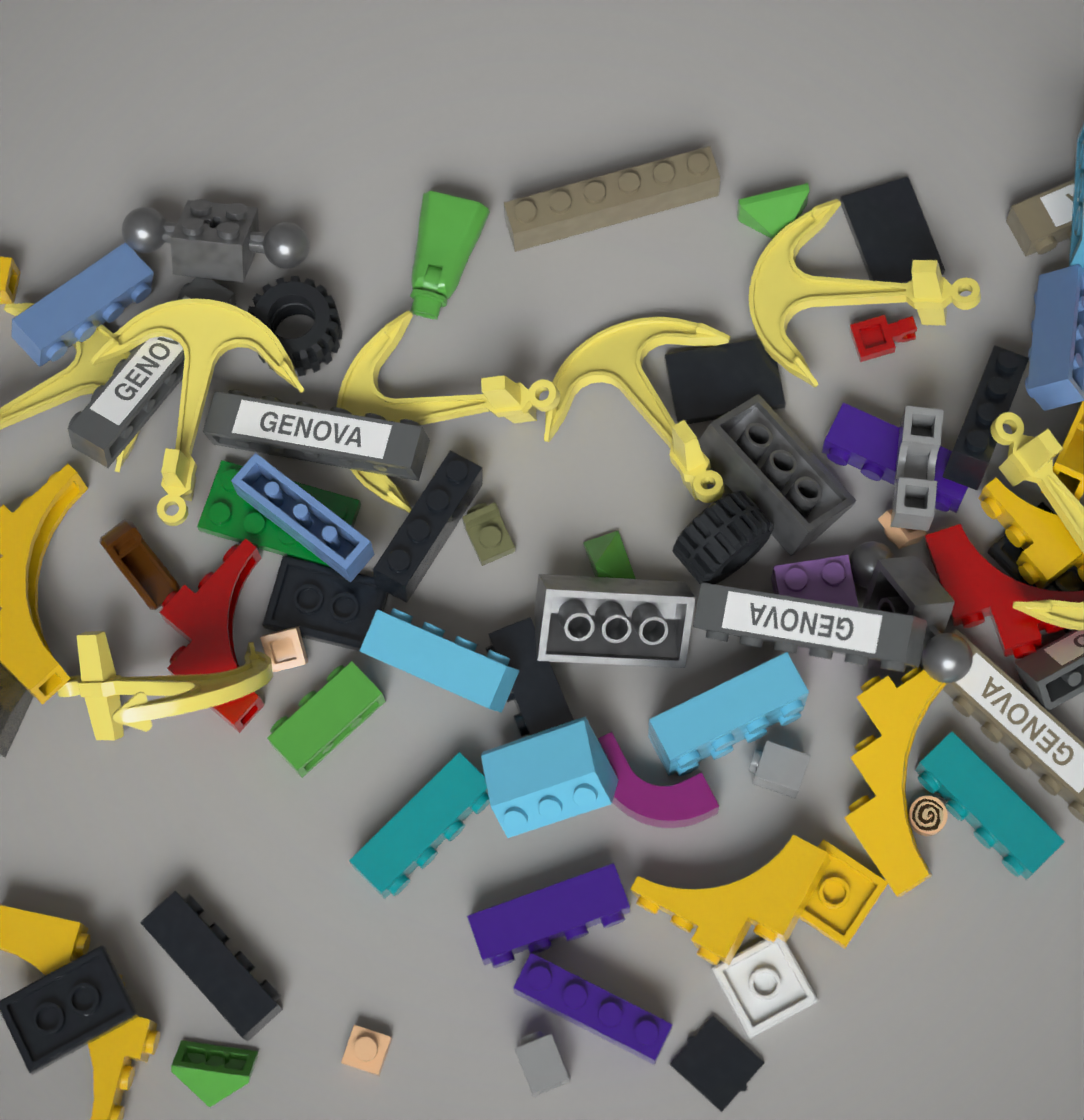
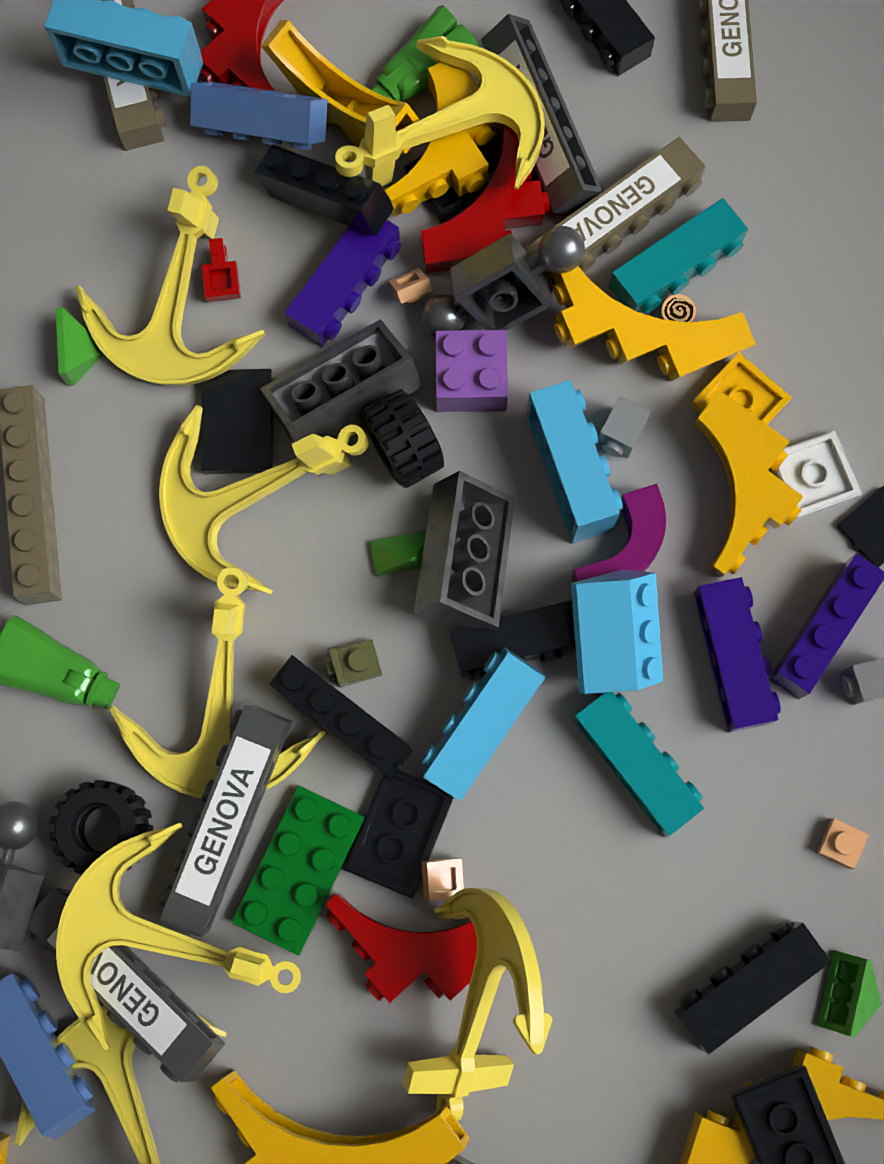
camera: 85 degrees left, 5 degrees up
(139, 564) = (333, 1020): reddish brown animal -> none
(303, 517) = (315, 841): medium blue brick -> none
(325, 718) = (519, 845): bright green brick -> none
(812, 625) = (507, 368): dark grey brick -> none
(889, 230) = (119, 248): black tile -> none
(915, 468) = (343, 248): light grey arch -> none

